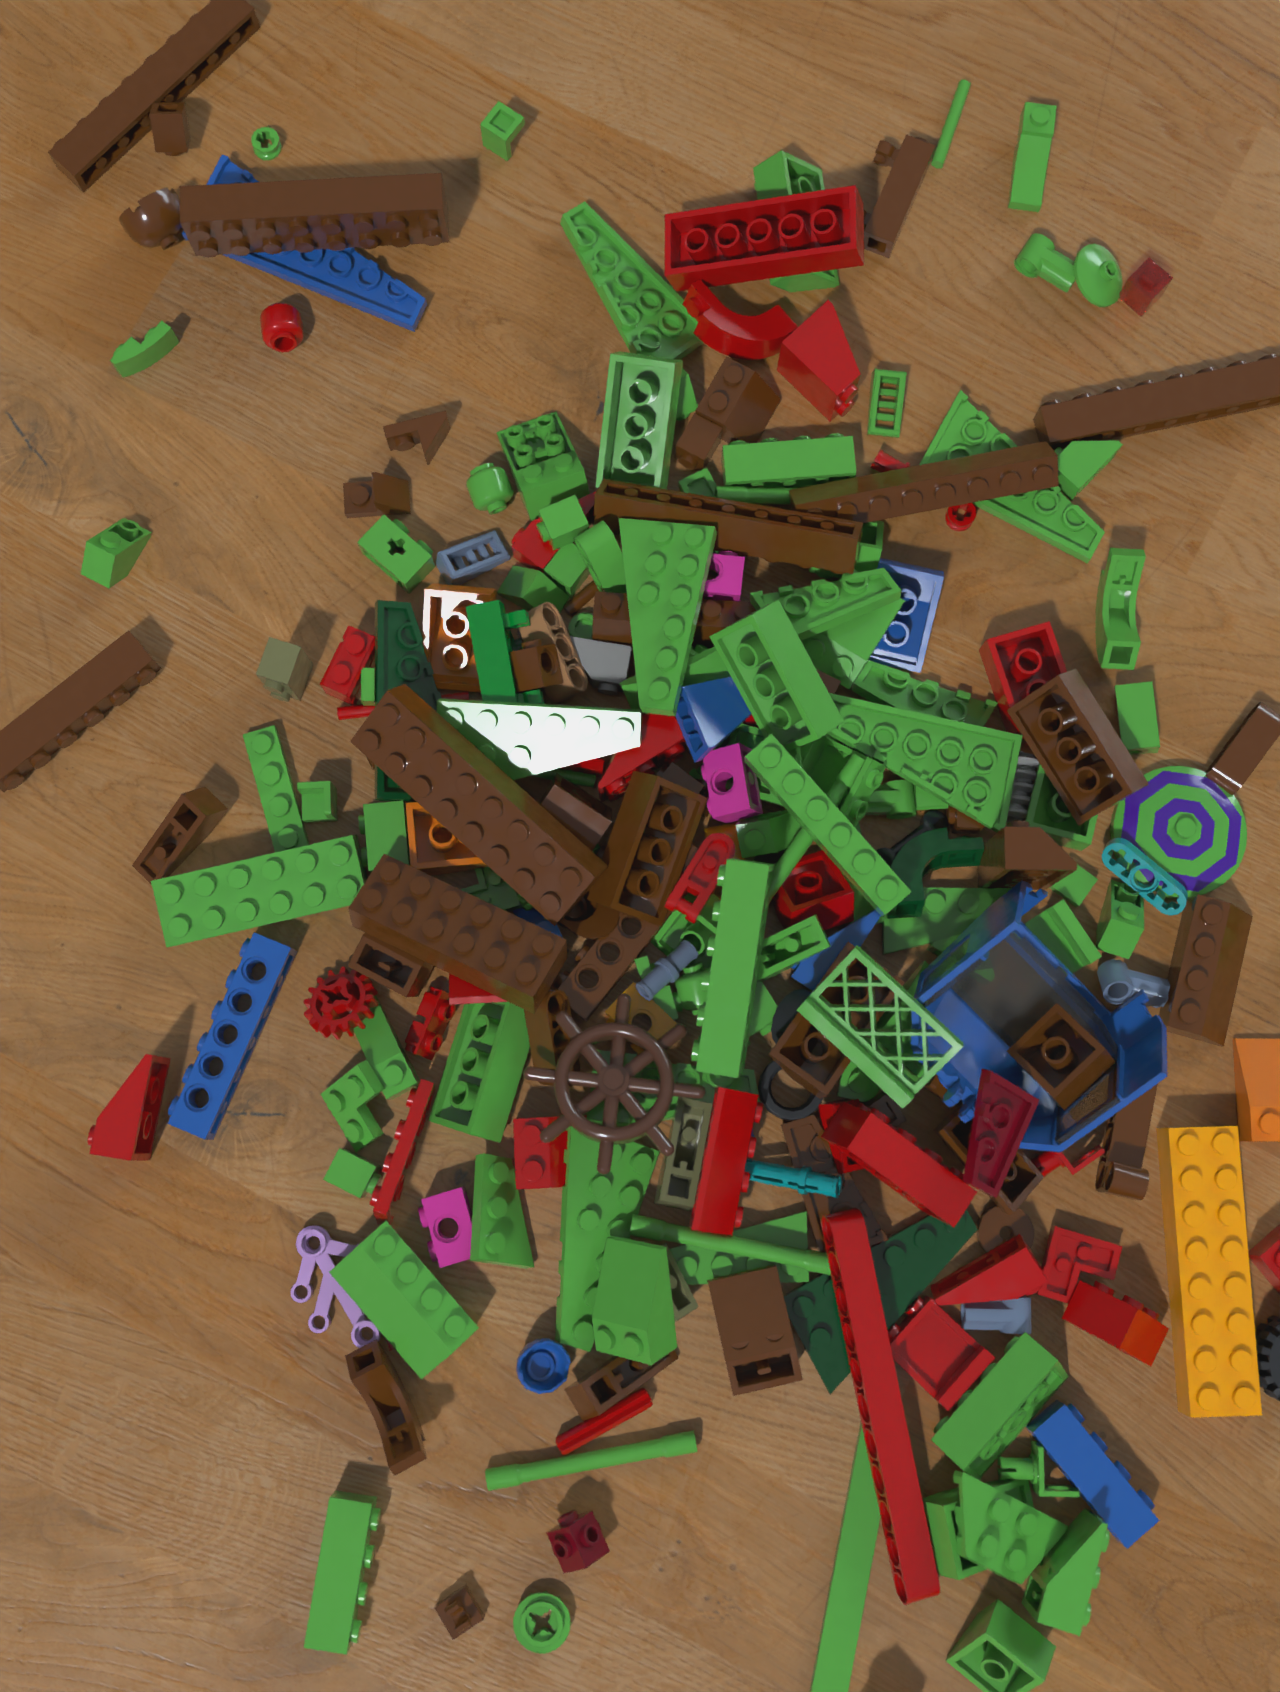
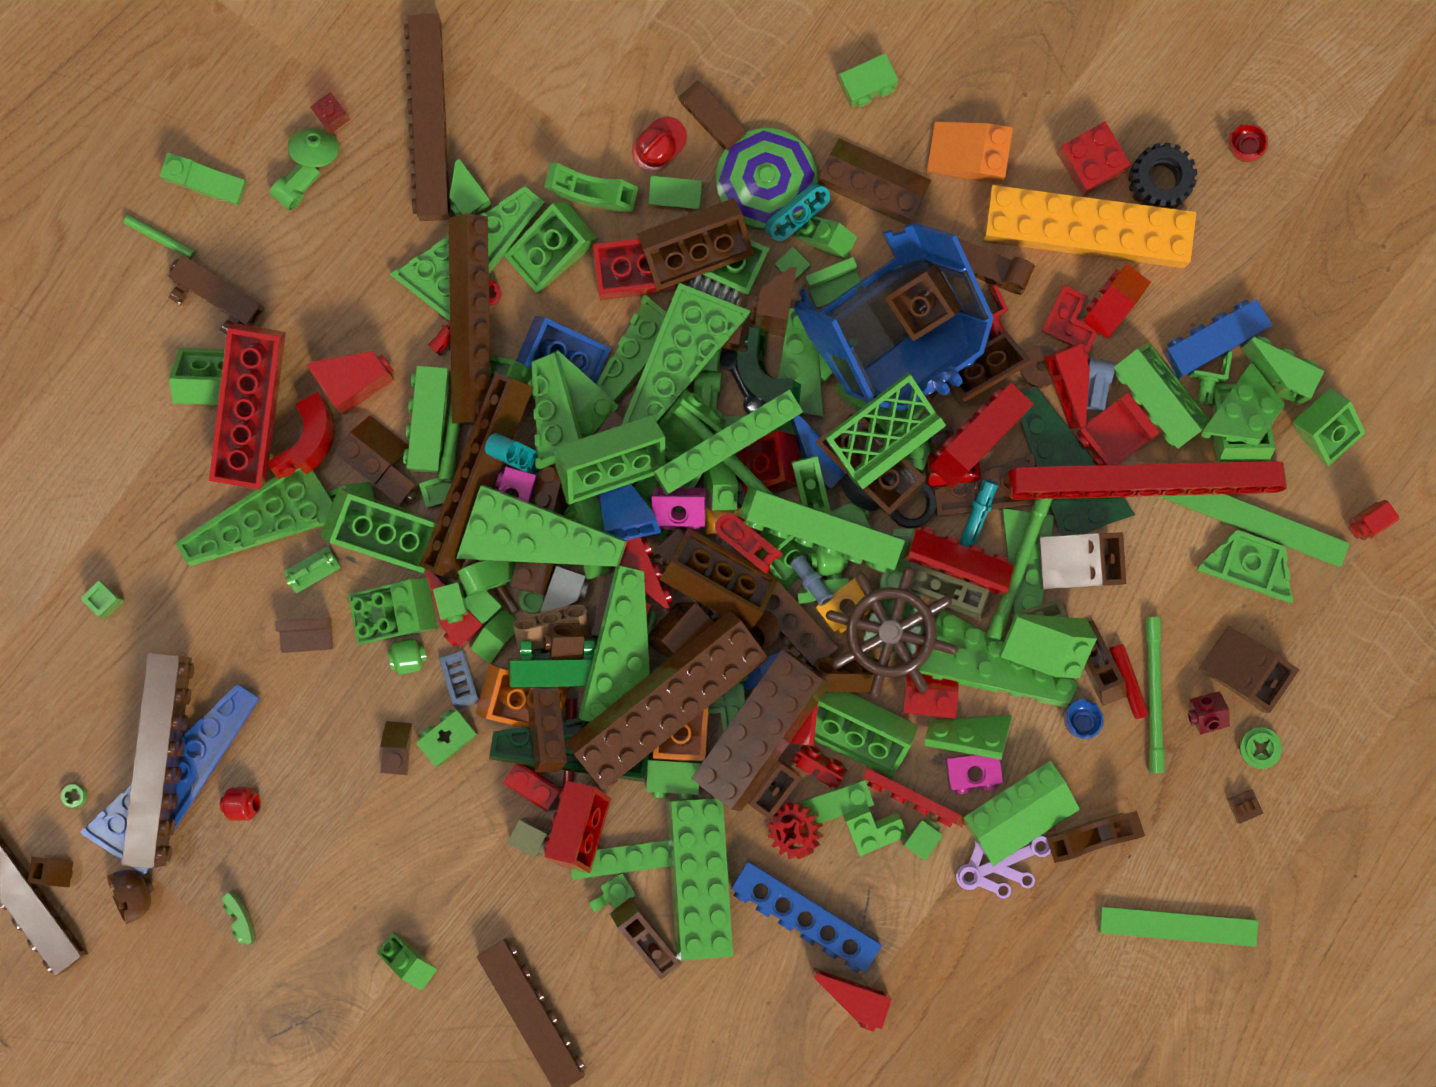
camera: 80 degrees left, 5 degrees up
(233, 790) = (615, 892): none -> bright green plate
(284, 1543) = (1178, 926): none -> bright green tile
(303, 724) = (577, 826): none -> red brick
(318, 801) = (636, 827): bright green panel -> none
(341, 1571) = (1204, 886): bright green brick -> none
(368, 686) = (557, 776): bright green tile -> none
(420, 662) = (546, 729): none -> reddish brown brick
(427, 430) = (350, 698): reddish brown slope -> none
(499, 369) = (305, 634): none -> reddish brown panel
(578, 362) = (311, 570): none -> bright green hinge
(645, 1590) = (1249, 669): none -> reddish brown slope
(763, 558) = (512, 453): none -> teal beam
(790, 1570) = (1251, 565): none -> bright green wing
(888, 377) = (370, 319): bright green slope -> none
(996, 1131) = (972, 361): dark red wing -> none
(1036, 576) = (551, 245): none -> bright green slope
(1121, 984) = (874, 246): sand blue piece -> none
(1193, 690) = (659, 144): none -> red piece

